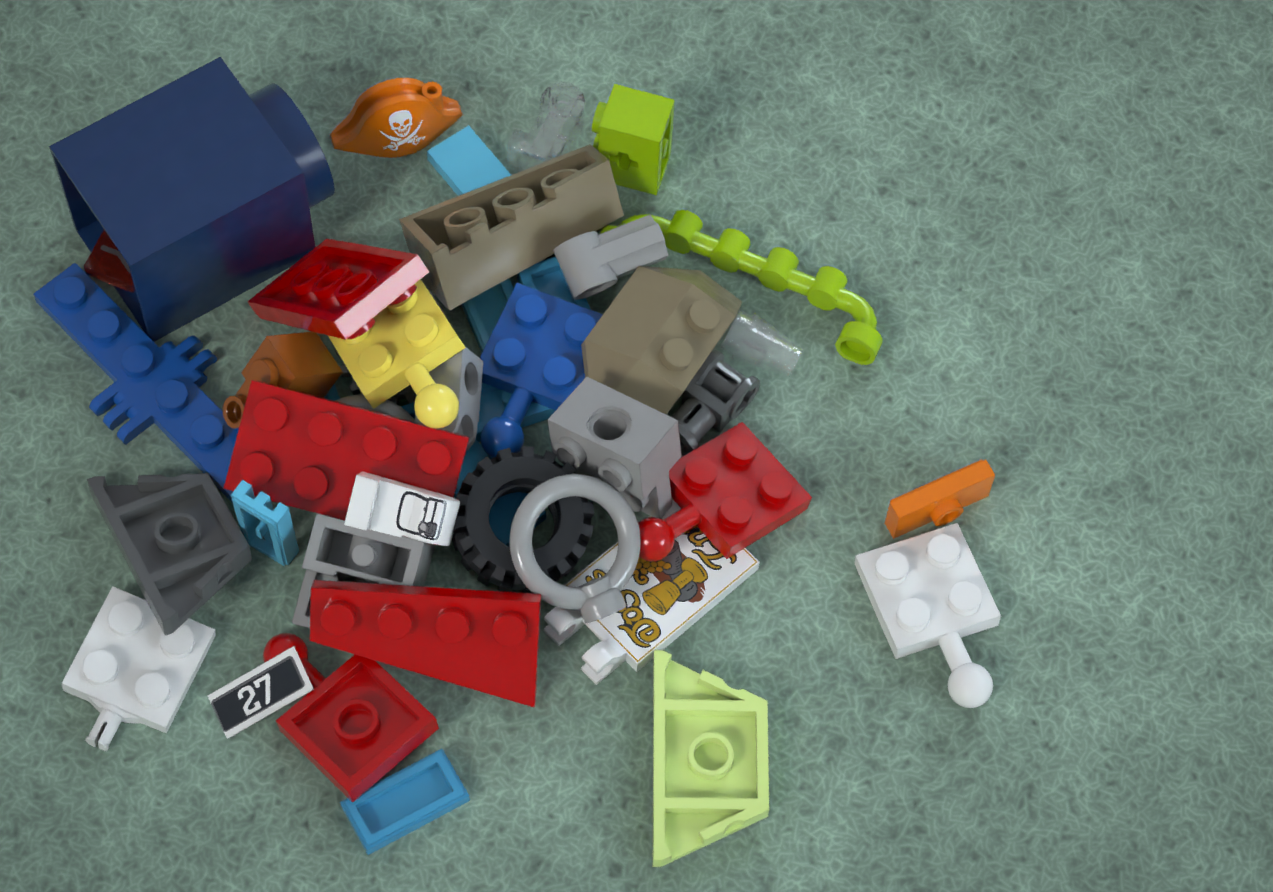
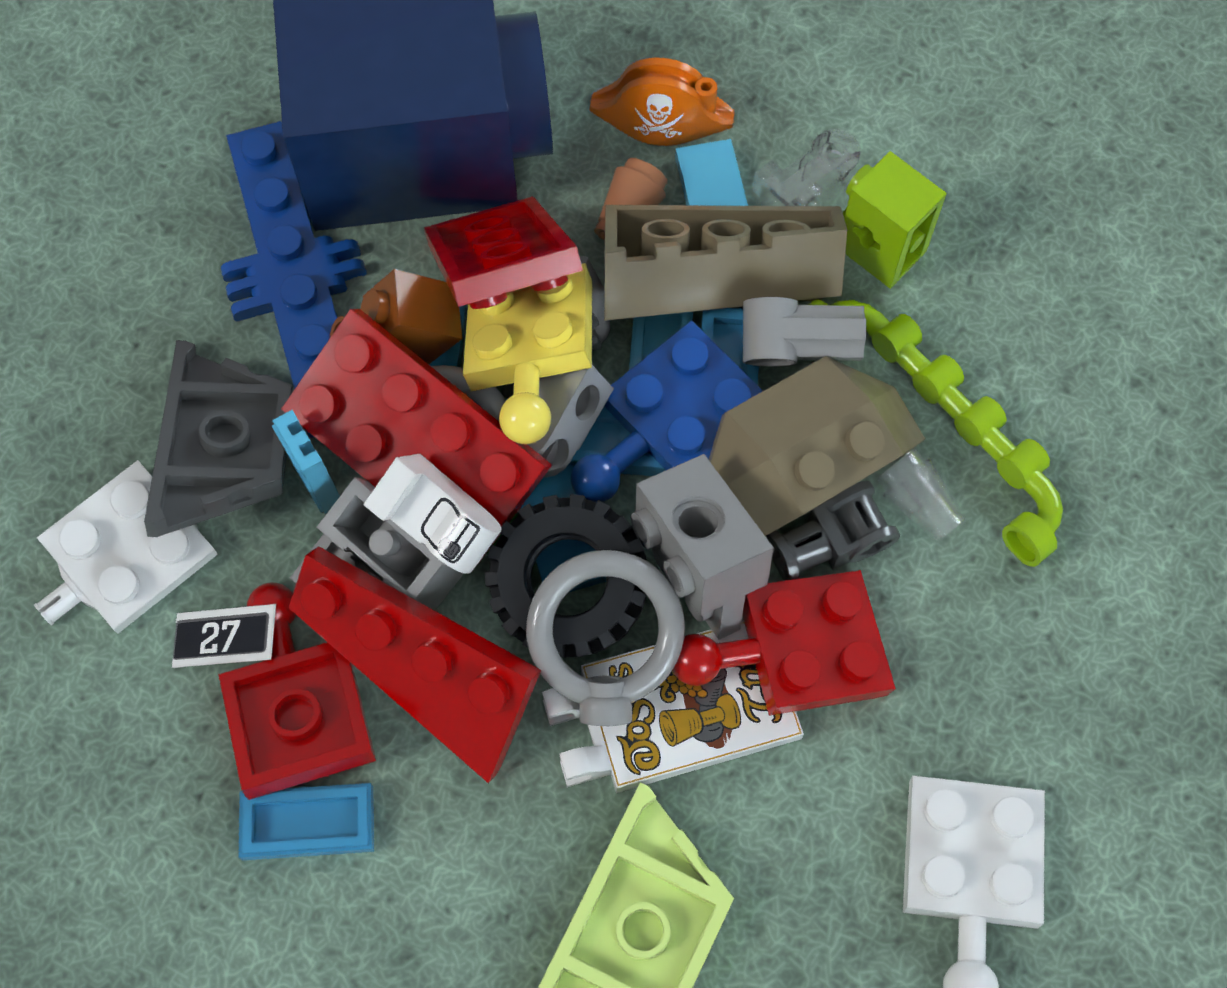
camera: 30 degrees right, 5 degrees up
(407, 195) = (633, 185): none -> nougat cone
(940, 499) = (1037, 757): orange plate -> none

